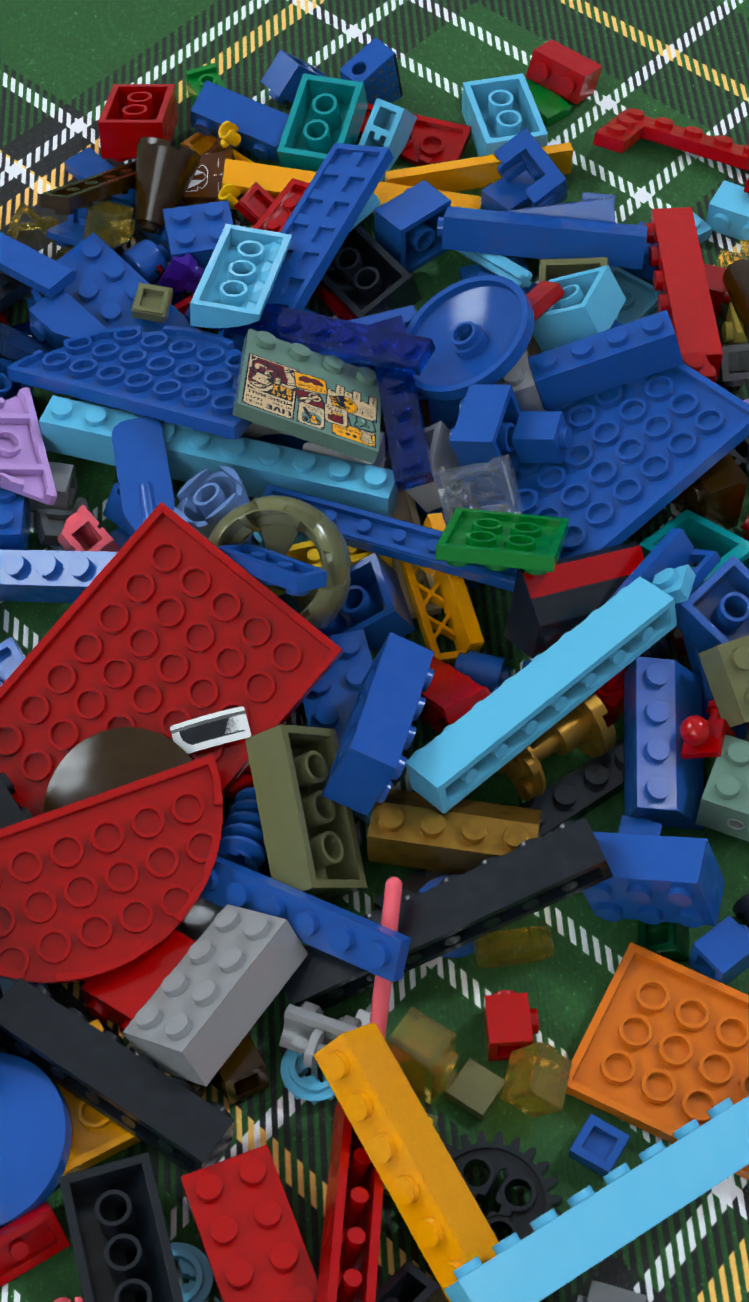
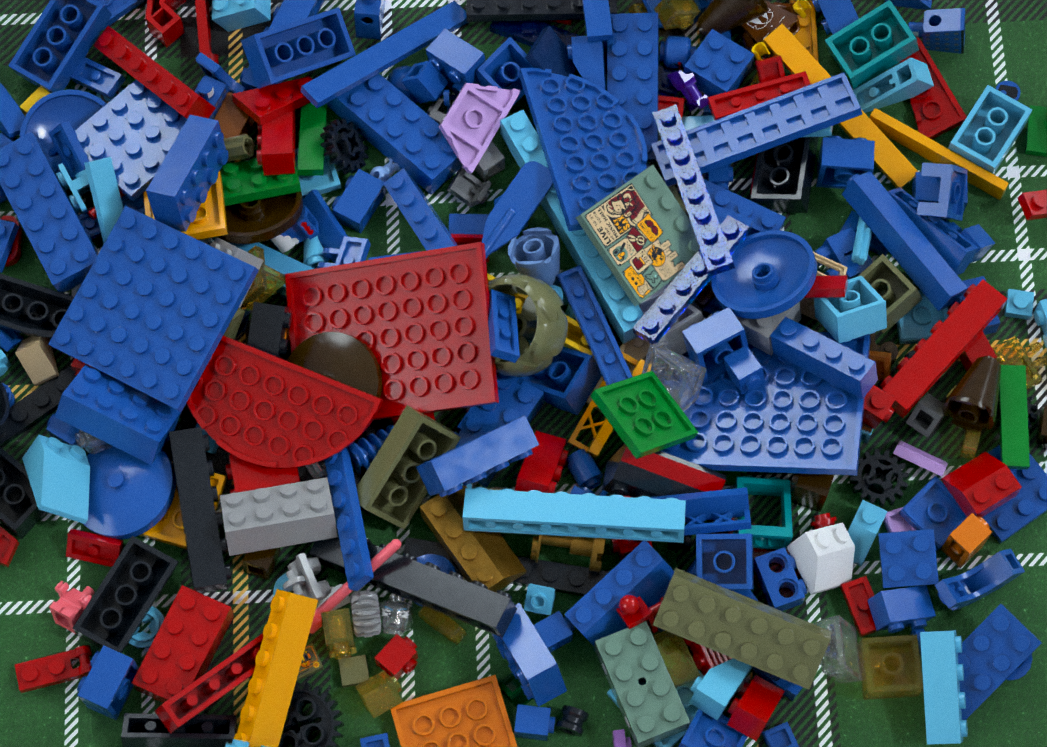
camera: 45 degrees right, 15 degrees up
(82, 534) = (461, 209): coral piece -> none
(152, 302) = (643, 89): olive tile -> none
(211, 730) = (402, 383): sticker -> none
(238, 277) = (693, 120): medium azure slope -> none
(428, 998) = (365, 614): none -> light grey gear
(456, 985) = (396, 615): none -> clear head
(596, 813) = (539, 599): none -> medium azure bracket
(676, 582) = (704, 519): medium azure plate -> none

